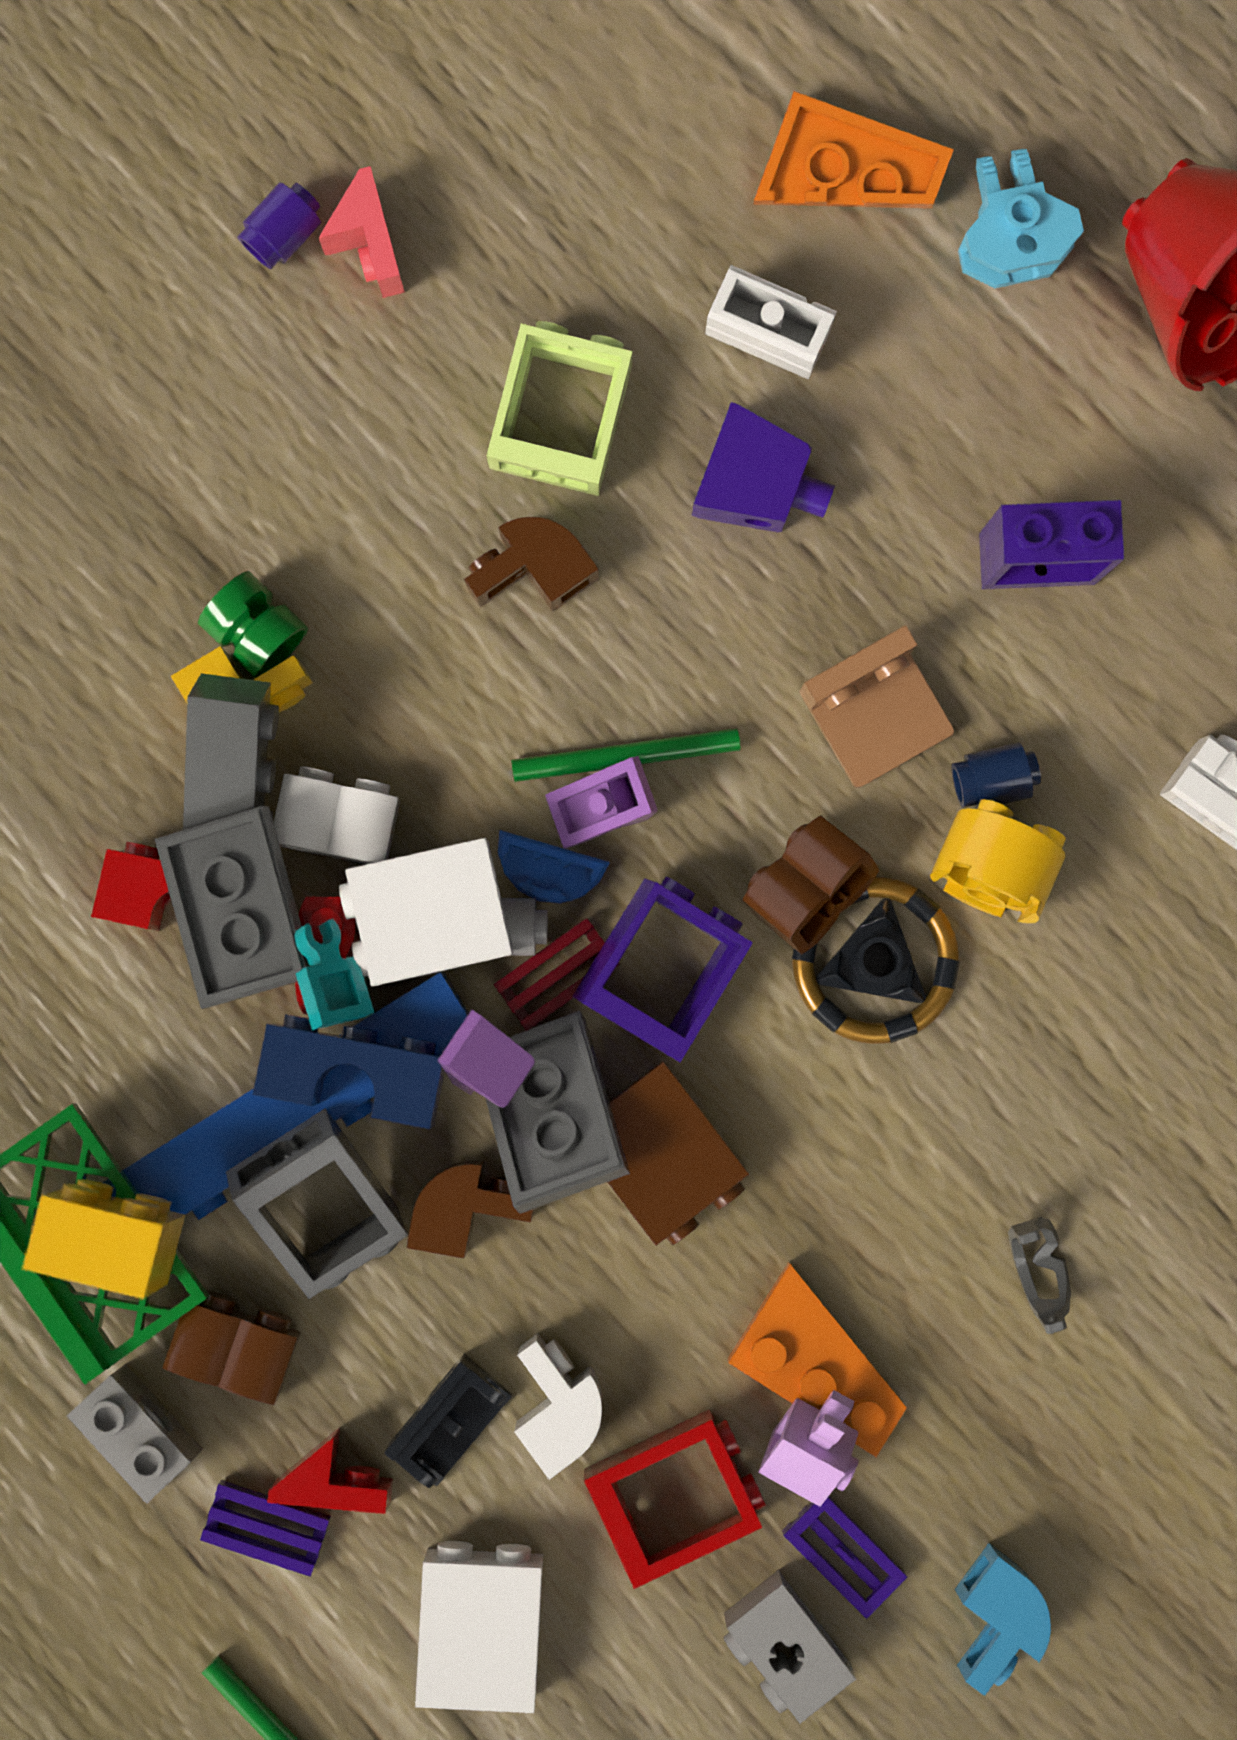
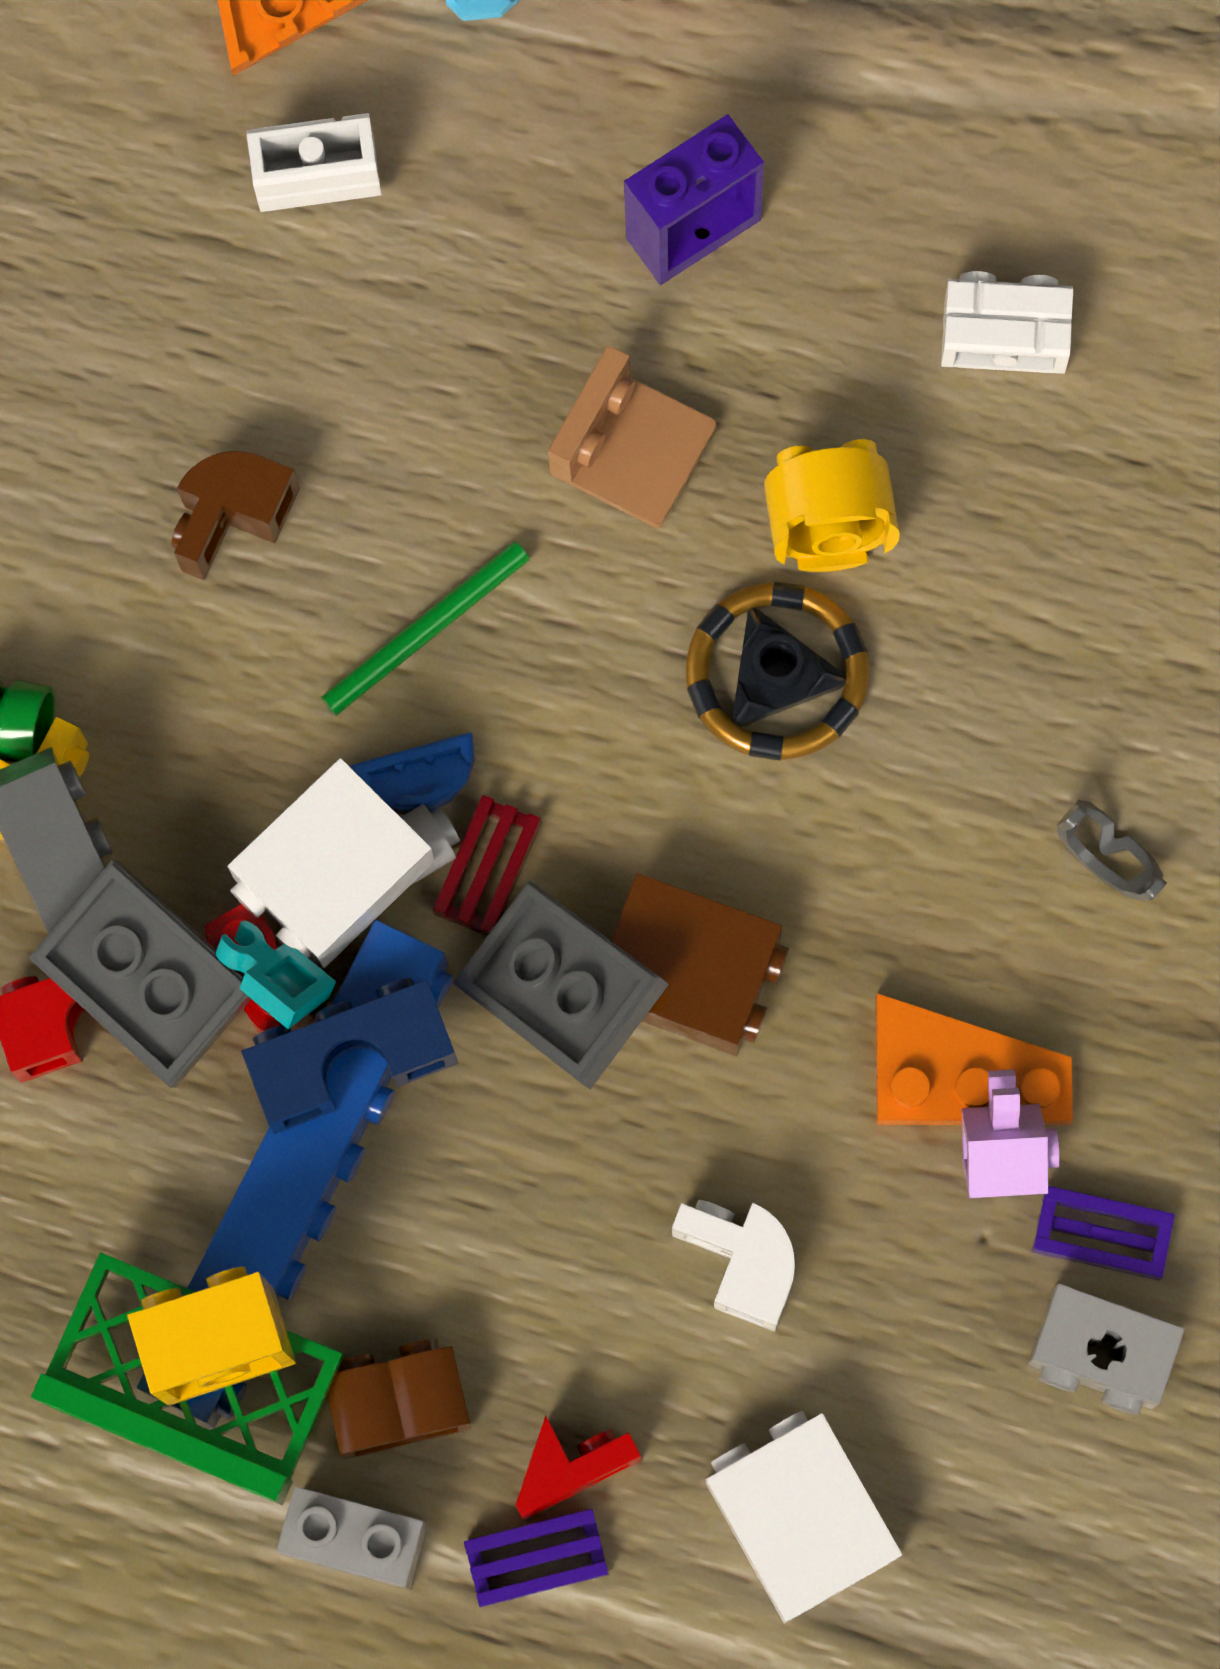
camera: 25 degrees left, 10 degrees down
(290, 1162) = (340, 1177): dark grey window -> none
(336, 818) = (186, 847): white brick -> none
(447, 1422) = (648, 1341): black hinge -> none
(448, 1205) = (520, 1134): reddish brown brick -> none
(485, 1061) = (466, 963): medium lavender slope -> none
(546, 464) = (185, 409): yellowish green window -> none
(602, 803) = (431, 676): medium lavender slope -> none
(617, 1519) = (871, 1331): red window -> none
(706, 991) = (584, 854): dark purple window -> none
(758, 475) = (389, 304): dark purple torso -> none
(810, 883) = (671, 633): reddish brown brick -> none
(997, 775) = (781, 425): dark blue brick -> none

